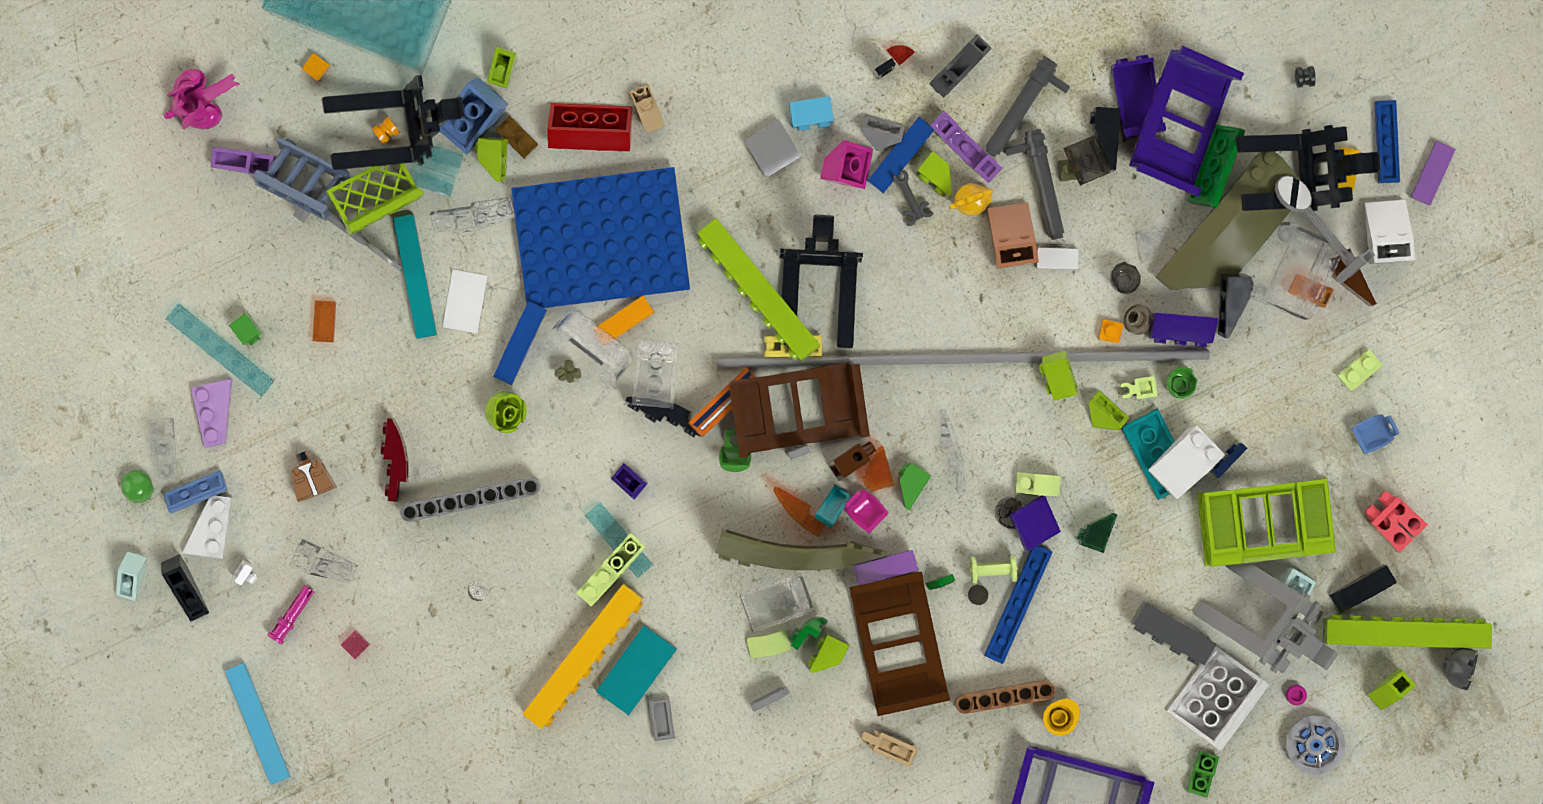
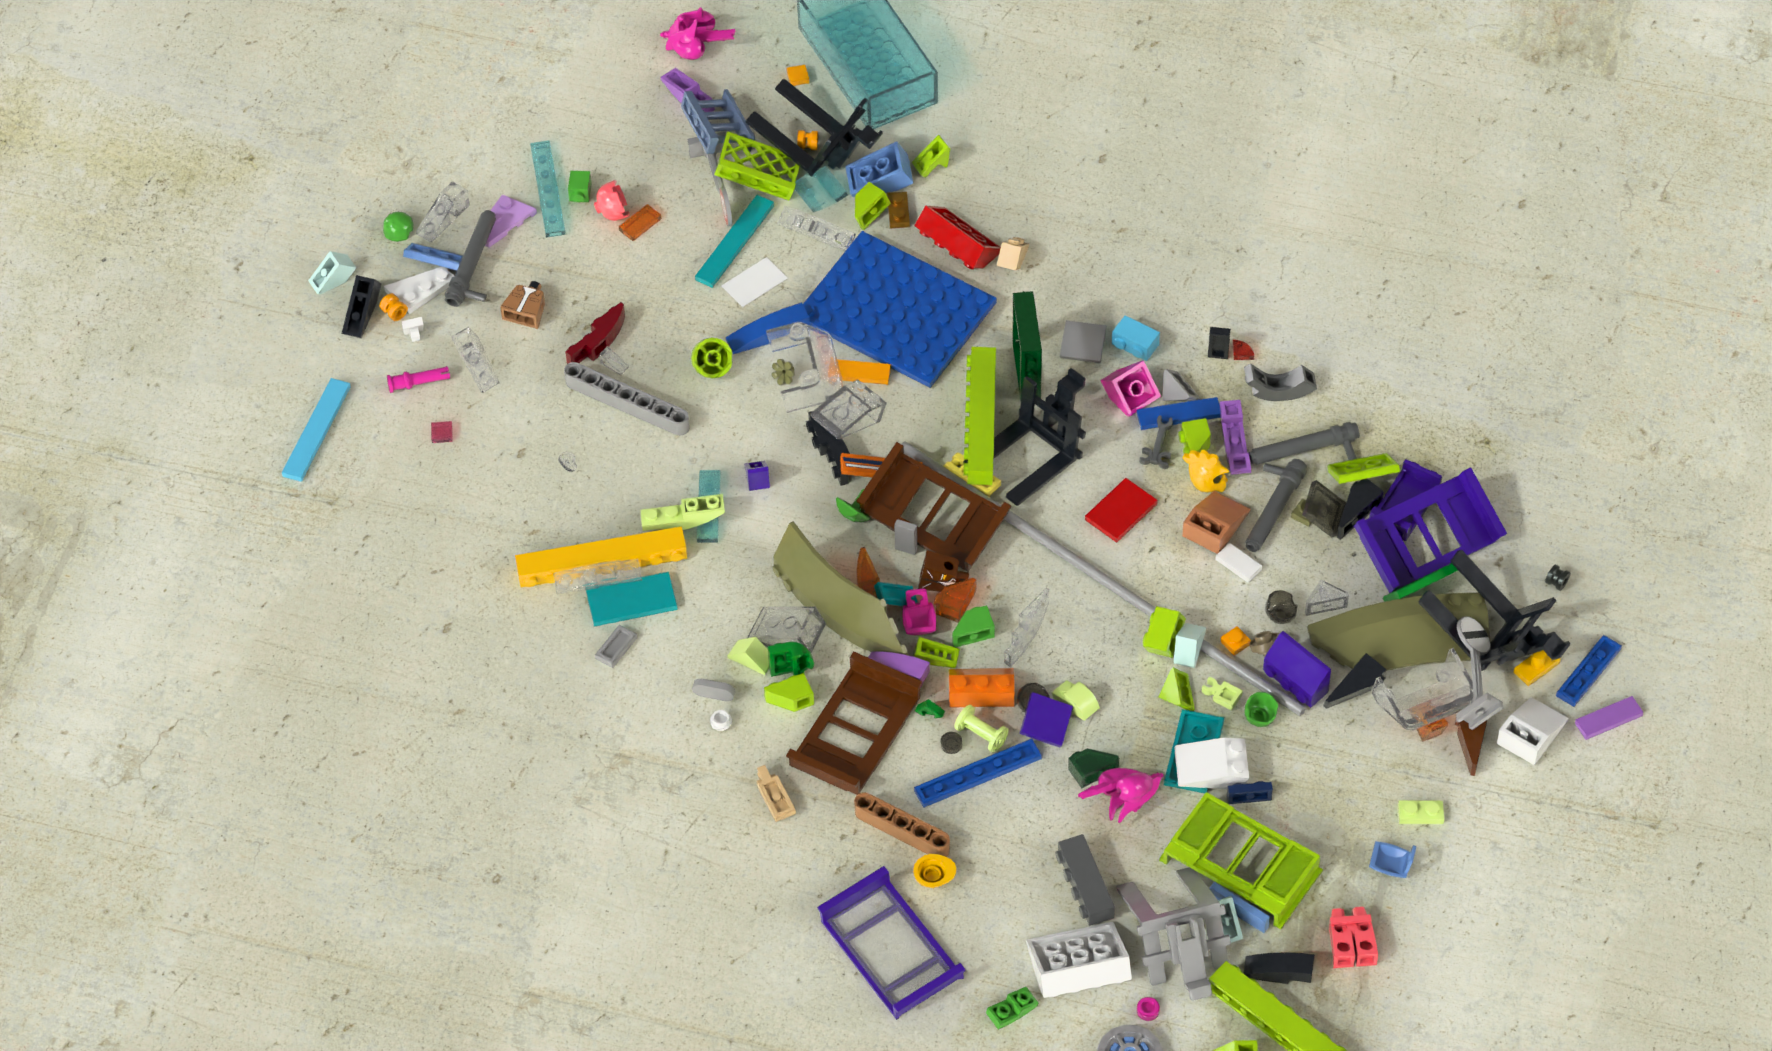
camera: 40 degrees right, 35 degrees down
(210, 567) = (391, 305): none -> light orange wheel
(241, 502) = (459, 284): none -> dark grey cylinder
(288, 326) = (611, 202): none -> coral cylinder
(602, 682) = (597, 575): none -> clear slope
(748, 206) = (1028, 348): none -> dark green window
(796, 717) = (720, 720): none -> white plate
(888, 539) = (936, 647): none -> lime slope
(931, 283) = (1121, 510): none -> red tile
(959, 528) = (981, 687): none -> orange slope
(1083, 366) = (1188, 644): none -> light aqua slope
(1086, 96) = (1363, 468): none -> lime tile
(1139, 532) = (1126, 788): none -> dark pink hair
(1297, 562) = (1243, 909): none -> medium blue tile

